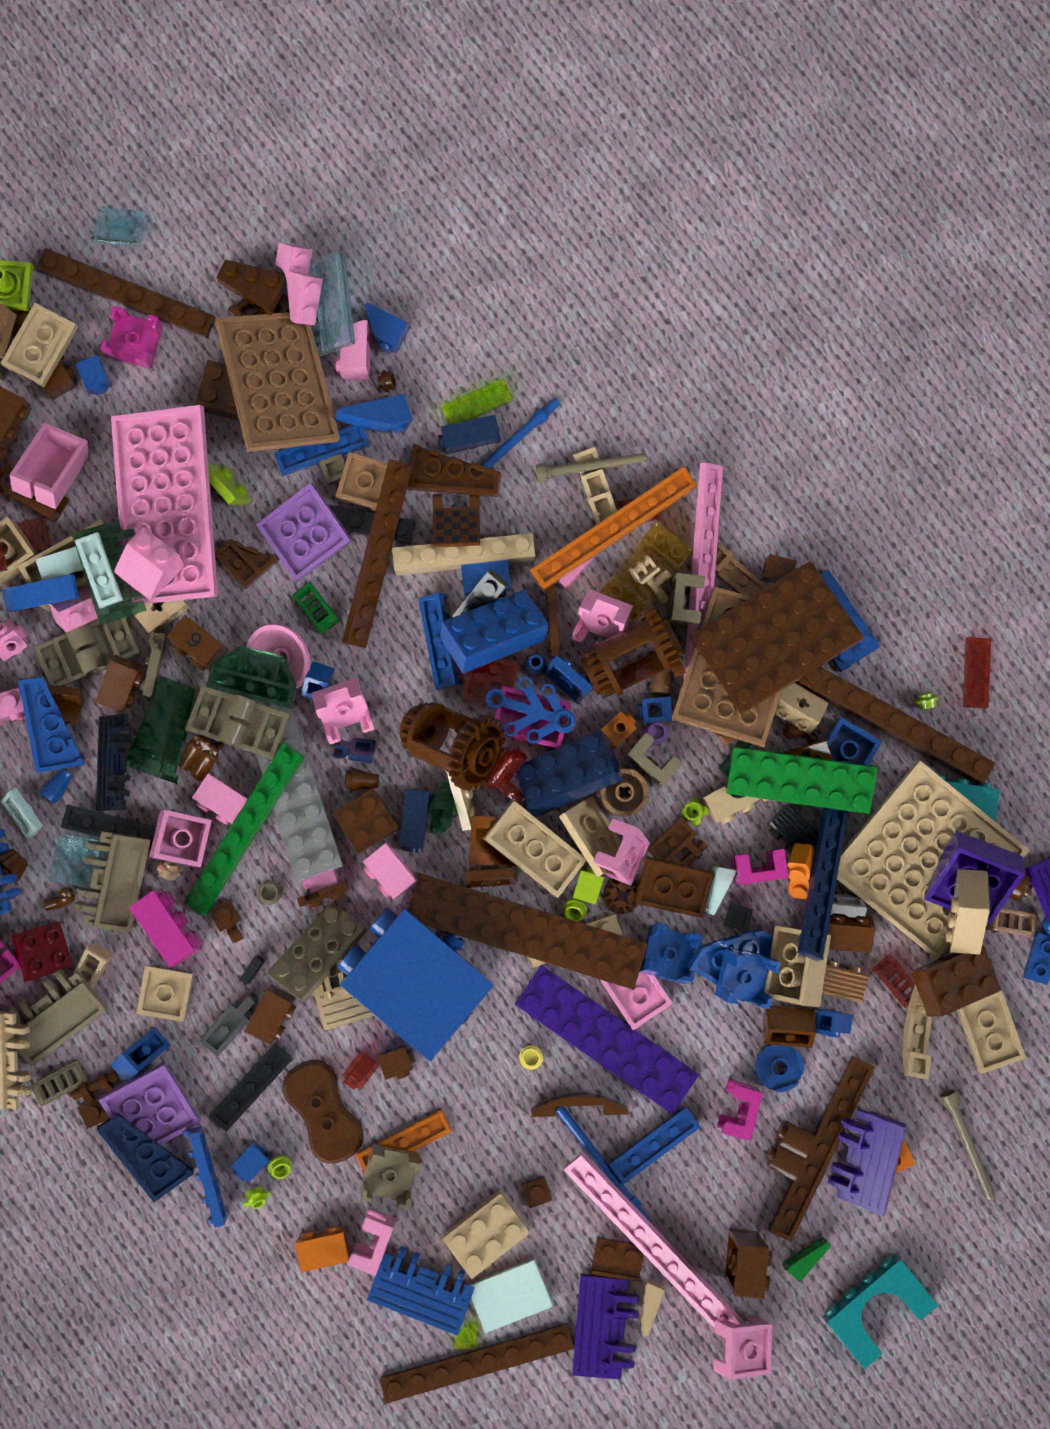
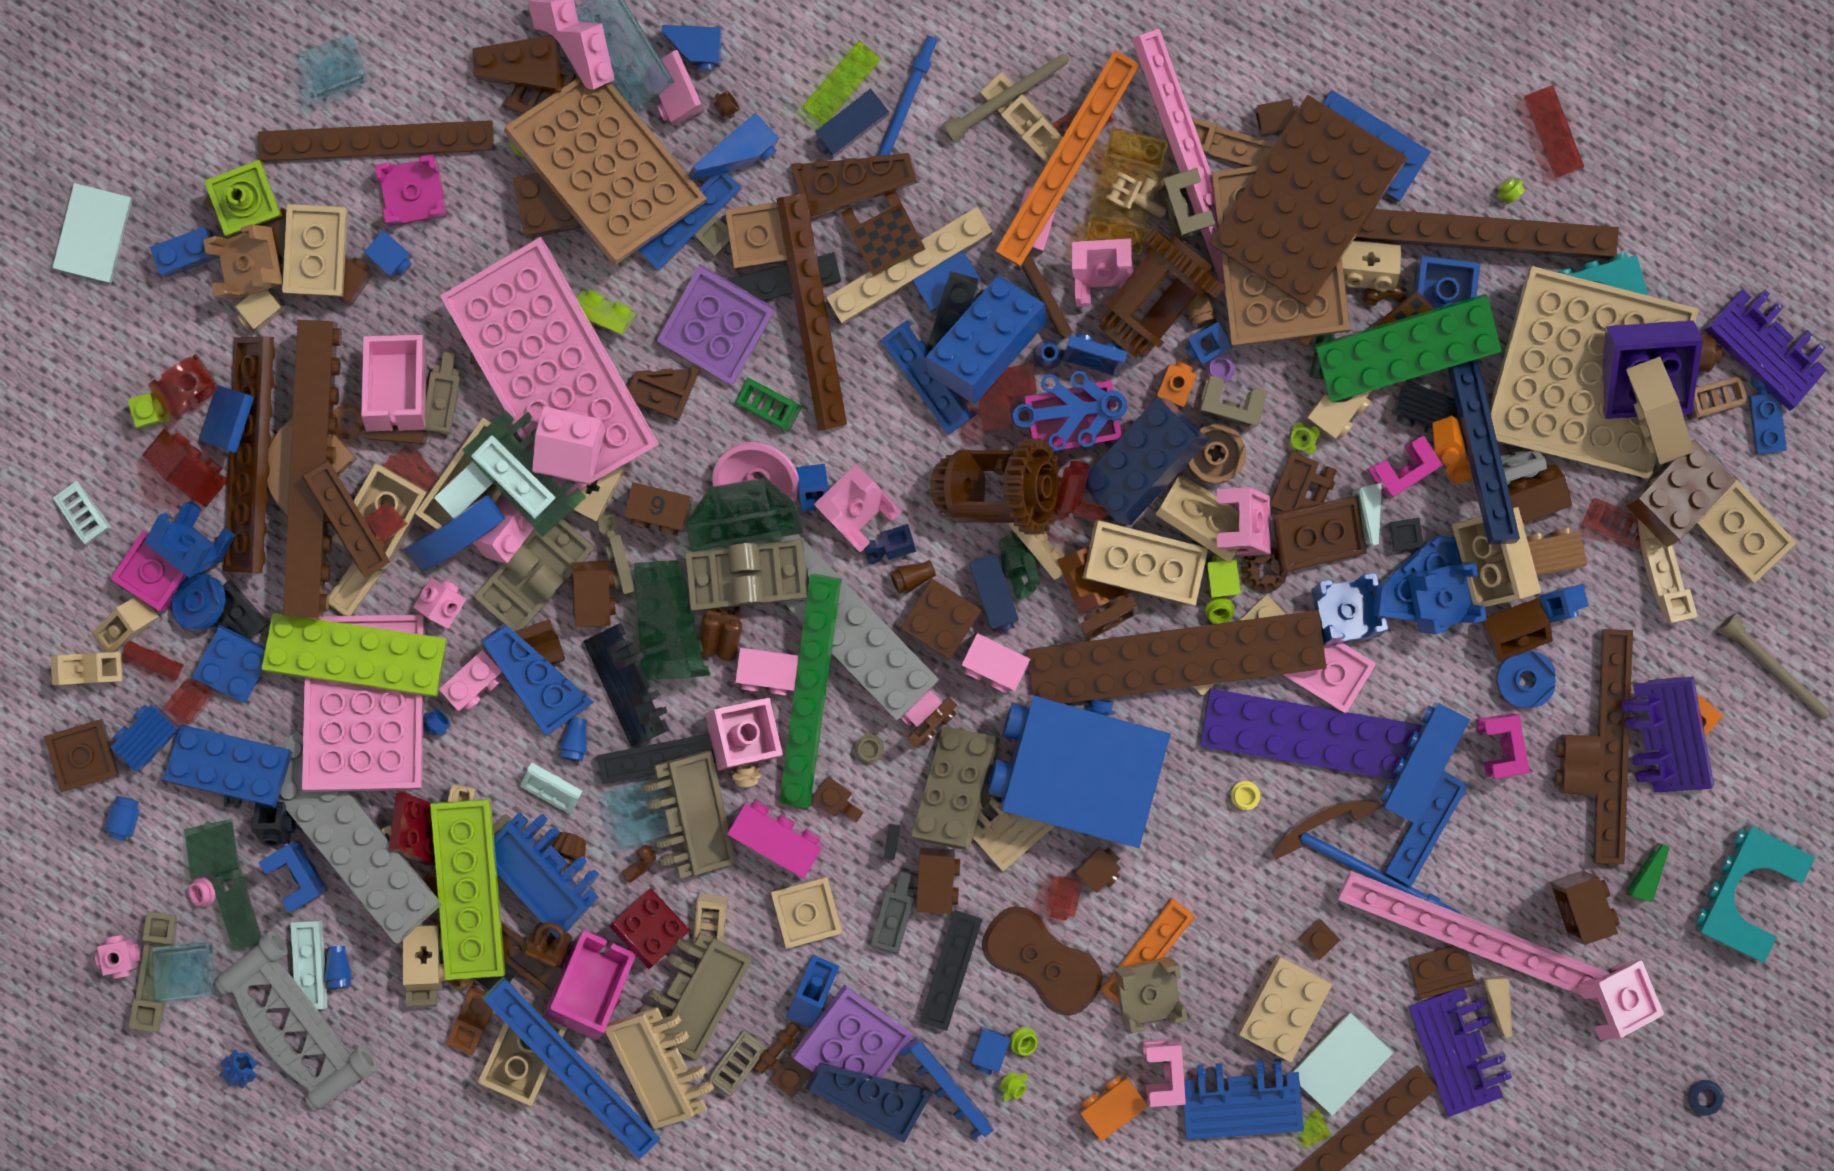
camera: 20 degrees left, 5 degrees up
(83, 492) = (442, 395): none -> dark tan hinge
(675, 1095) = (1424, 762): none -> blue brick

